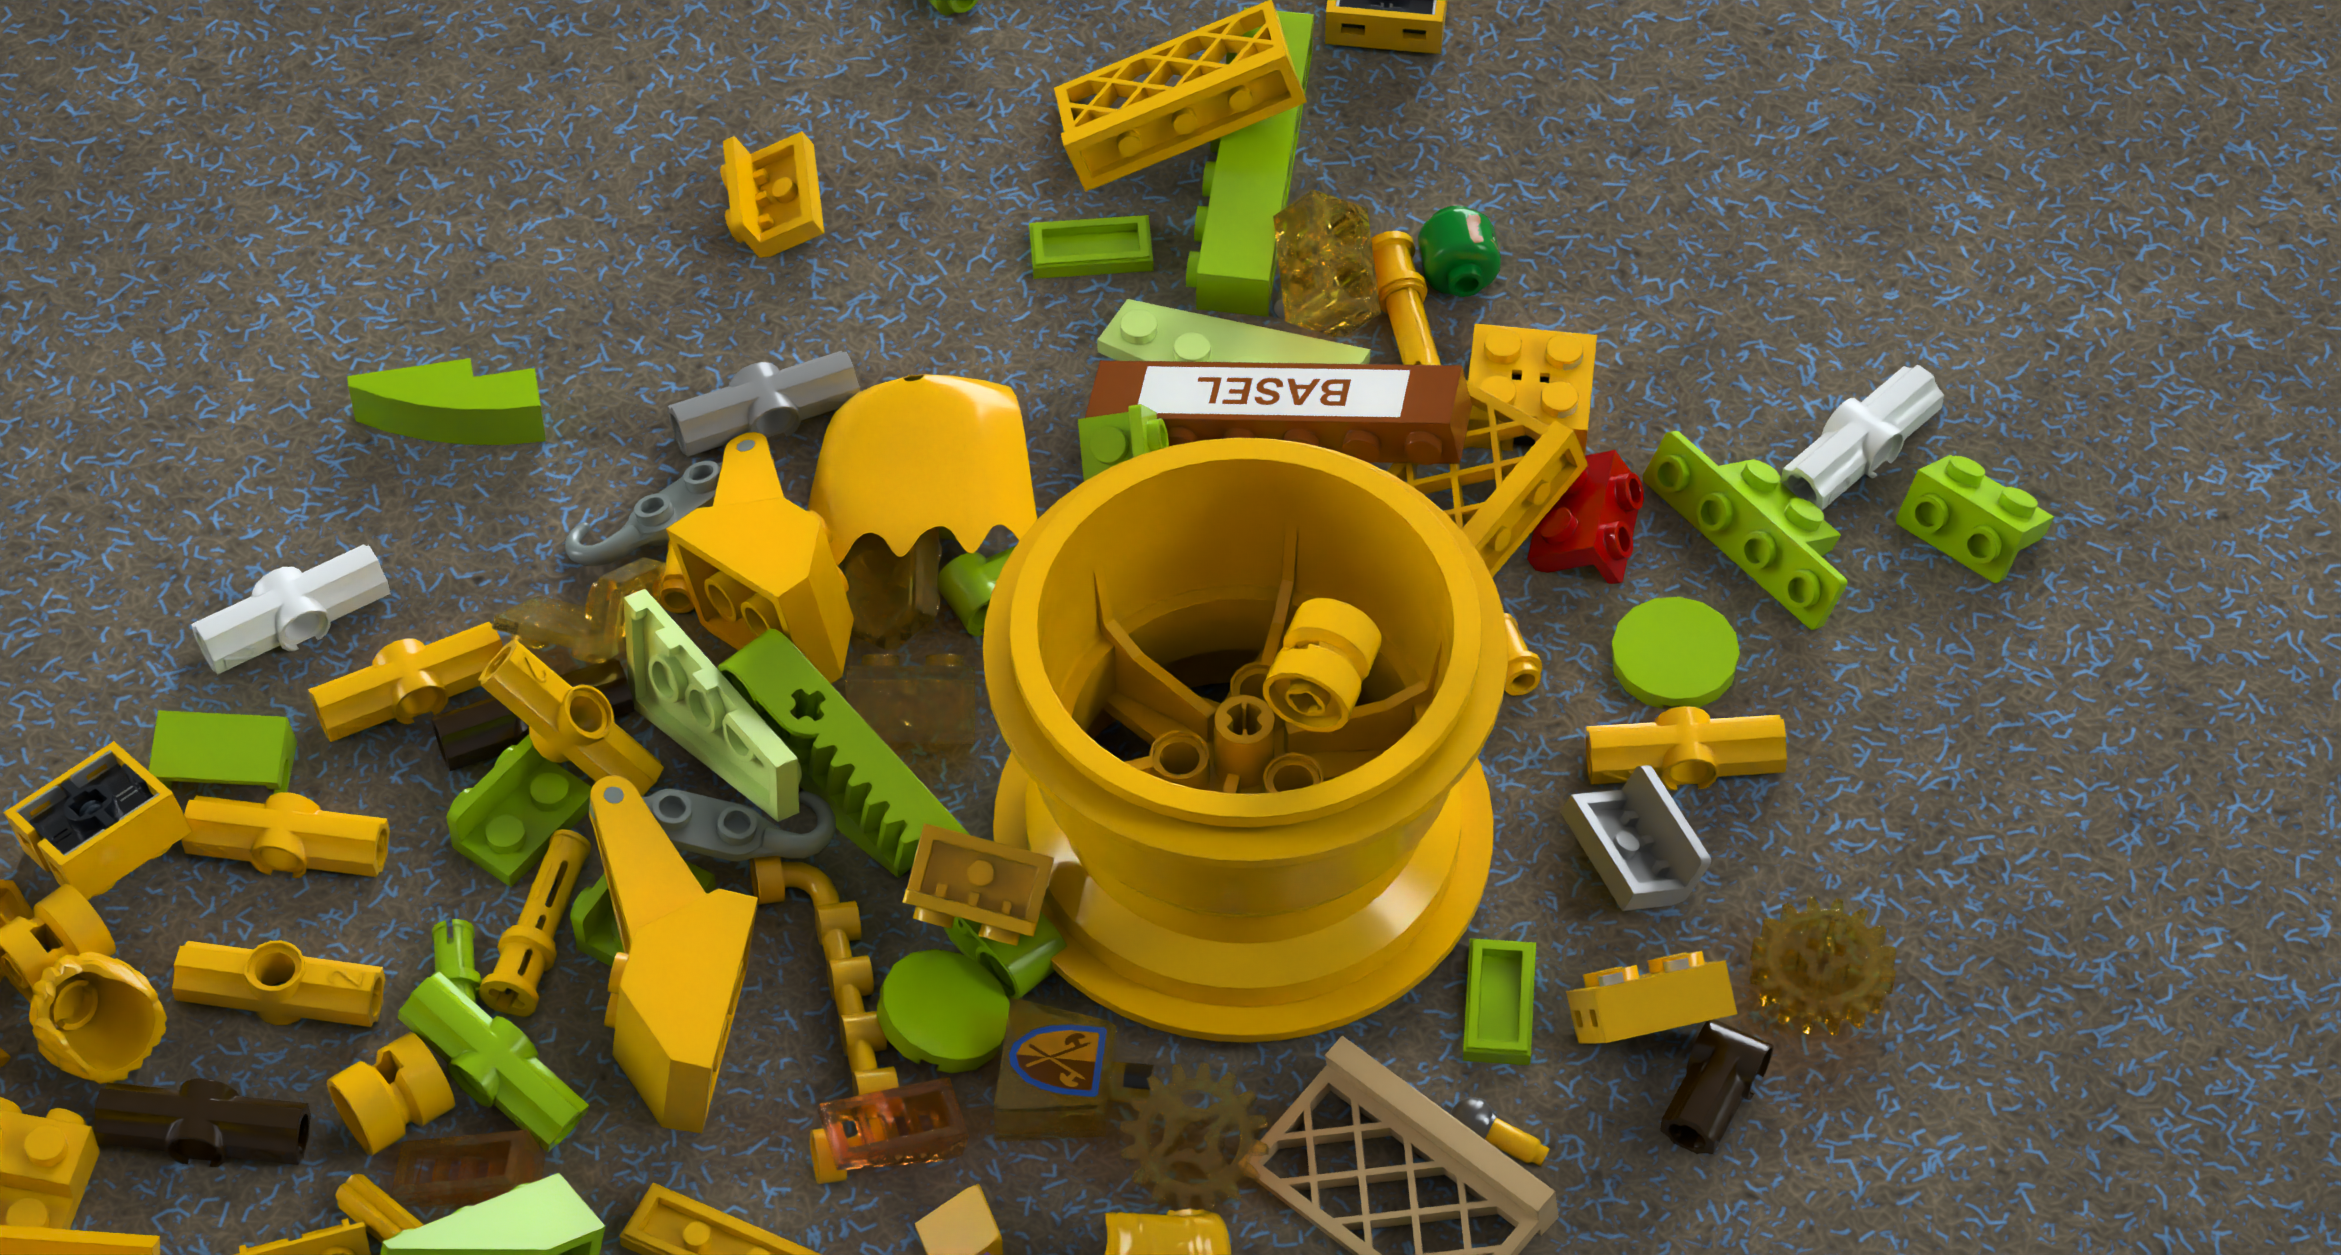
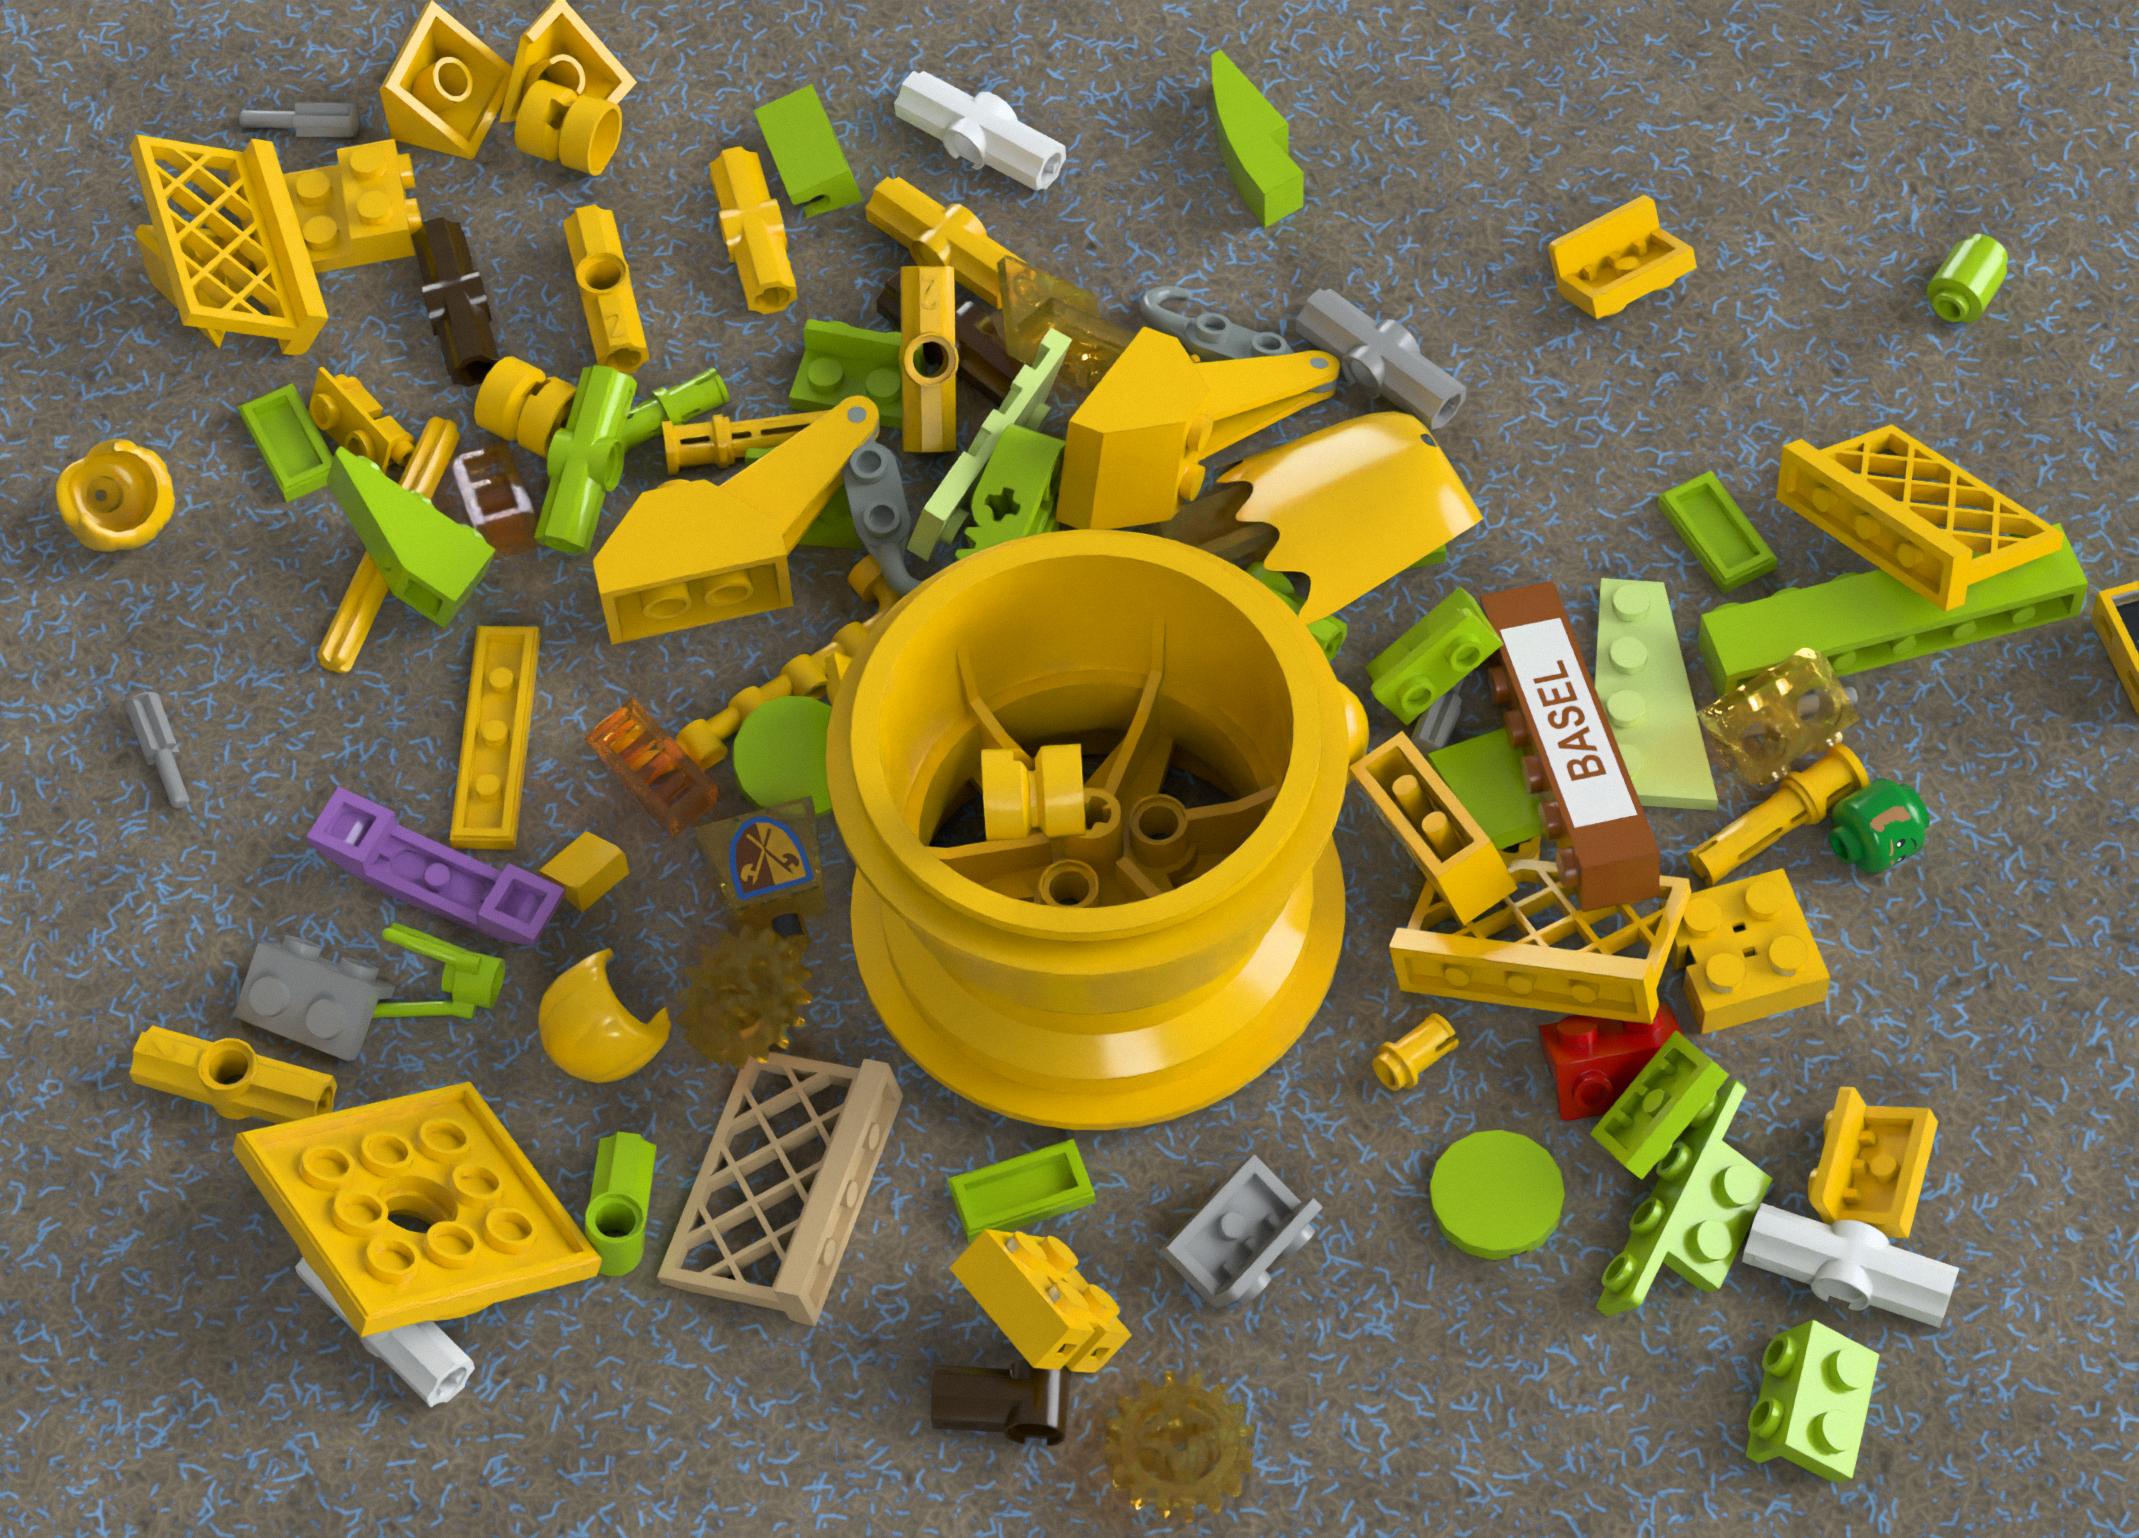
camera: 70 degrees right, 5 degrees up
(96, 1017) = (507, 184): yellow hair -> none
(98, 821) = (689, 99): piece -> none
(1481, 1119) = (875, 1218): piece -> none
(1676, 485) = (1659, 1105): none -> lime bracket
(1687, 748) = (1377, 1240): yellow piece -> none
(1781, 383) = (1872, 1164): none -> yellow bracket

